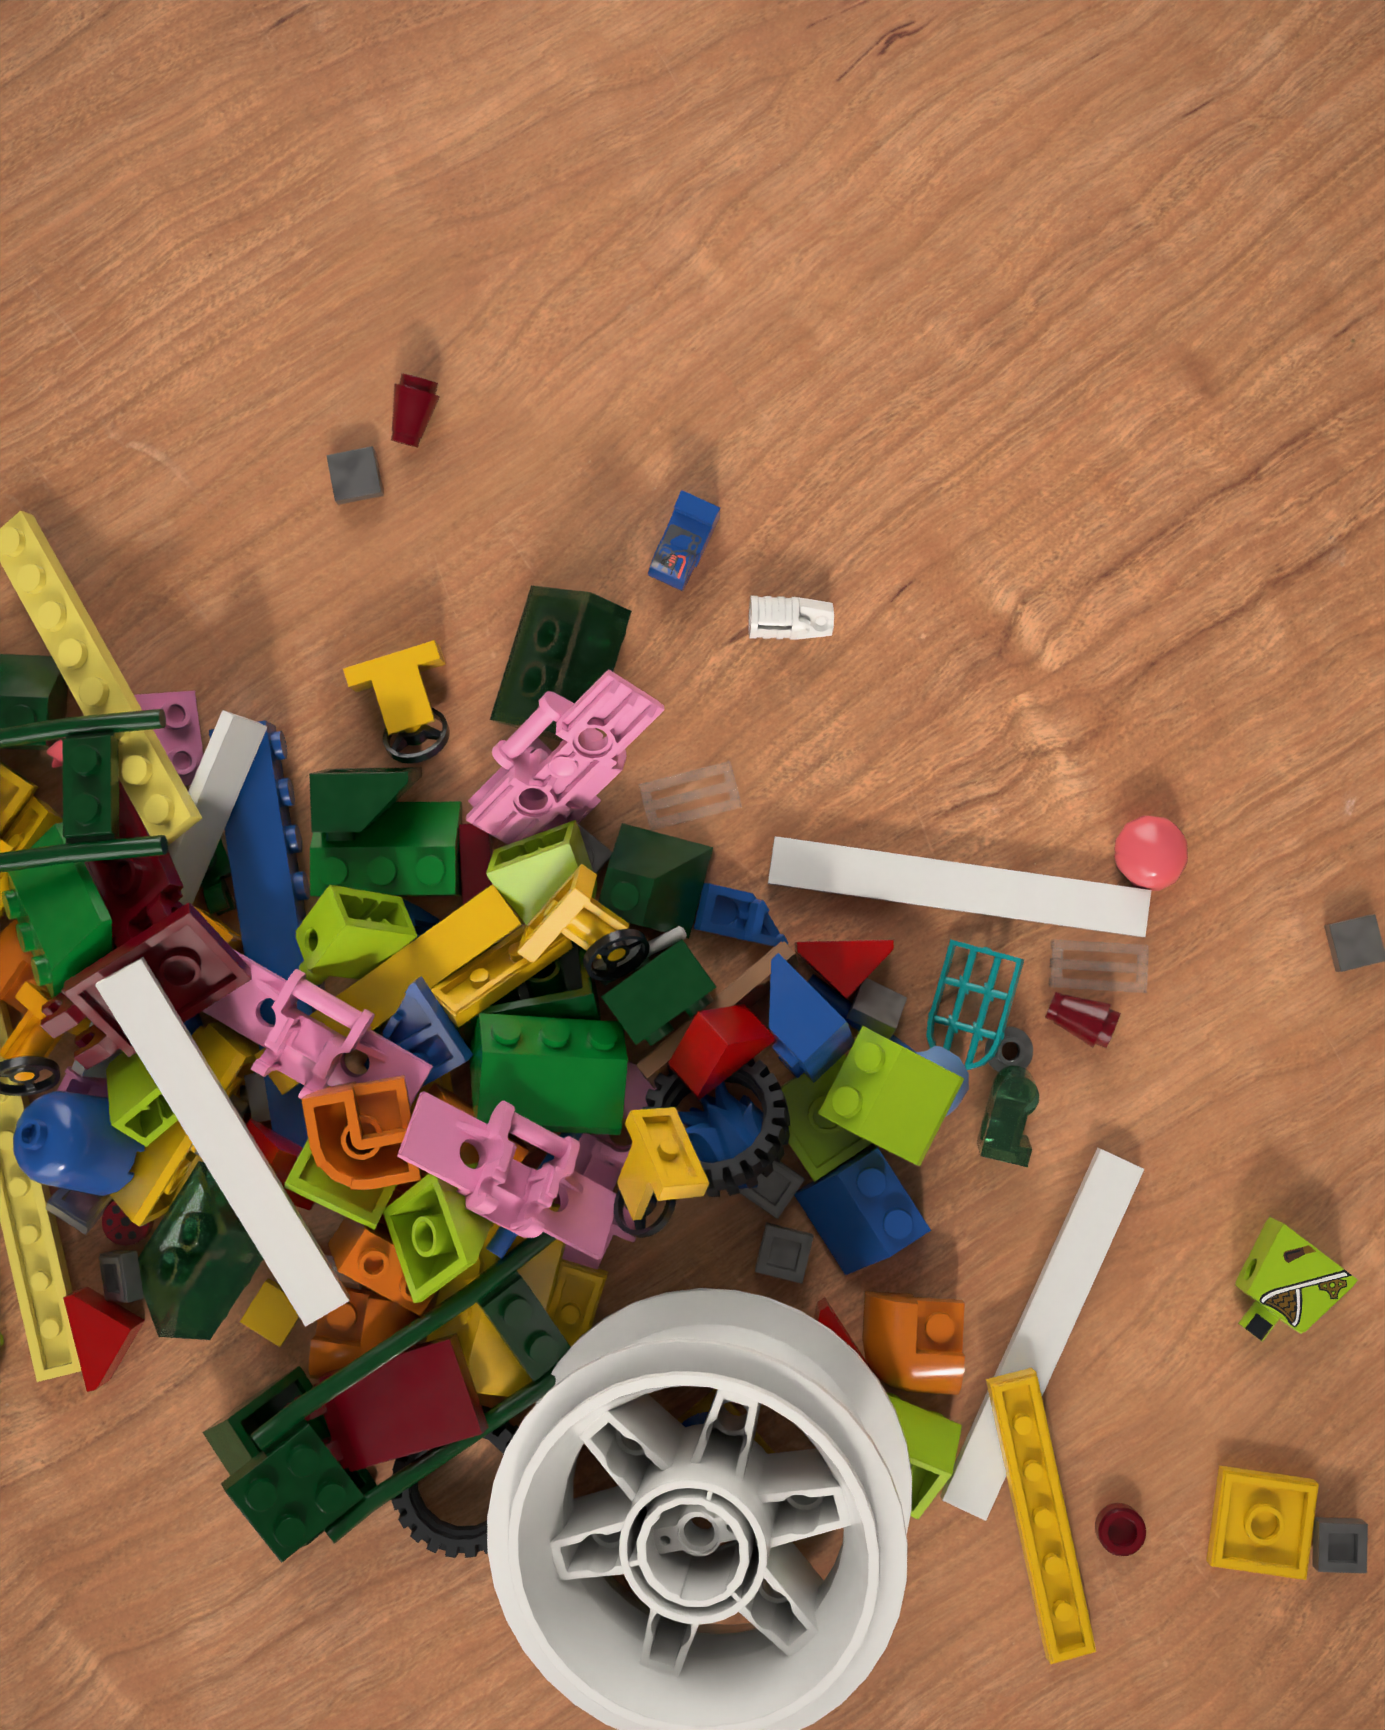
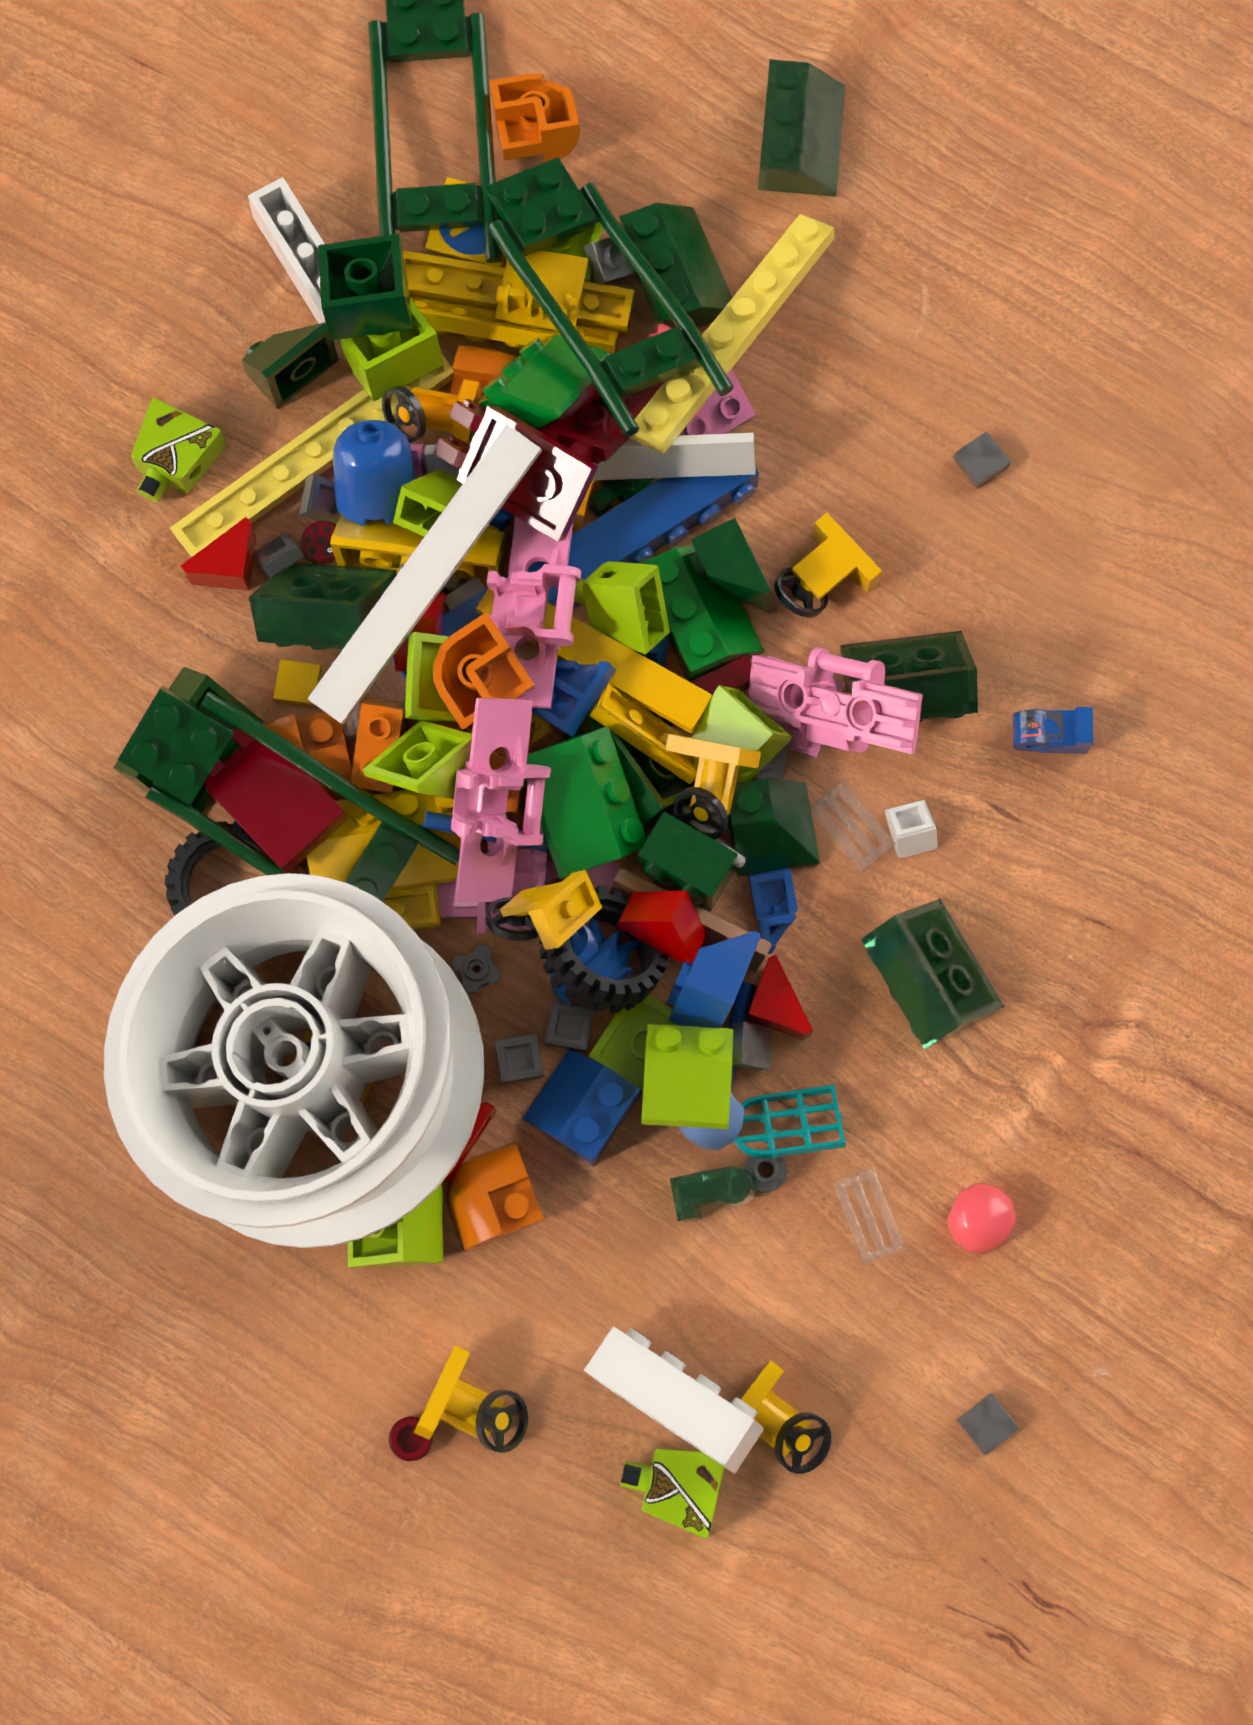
camera: 65 degrees right, 10 degrees down
(412, 408) = (1055, 479): dark red cone -> none
(679, 1265) = (471, 980): none -> flat silver plate
(719, 736) = (912, 829): none -> white slope
(789, 618) = (1032, 840): white hinge -> none
(883, 787) = (931, 972): none -> clear green slope
(959, 886) = (880, 1074): white tile -> none
(1041, 1515) = (395, 1363): yellow tile -> none
(1047, 1319) = (545, 1300): white tile -> none
(1084, 1018) = (819, 1220): dark red cone -> none
(1120, 1458) = (471, 1408): none -> yellow piece
(1208, 1252) = (675, 1399): none -> white brick
(1262, 1154) = (783, 1425): none -> piece
(1262, 1522) = (467, 1558): yellow tile -> none
(1340, 1545) = (477, 1630): flat silver plate -> none

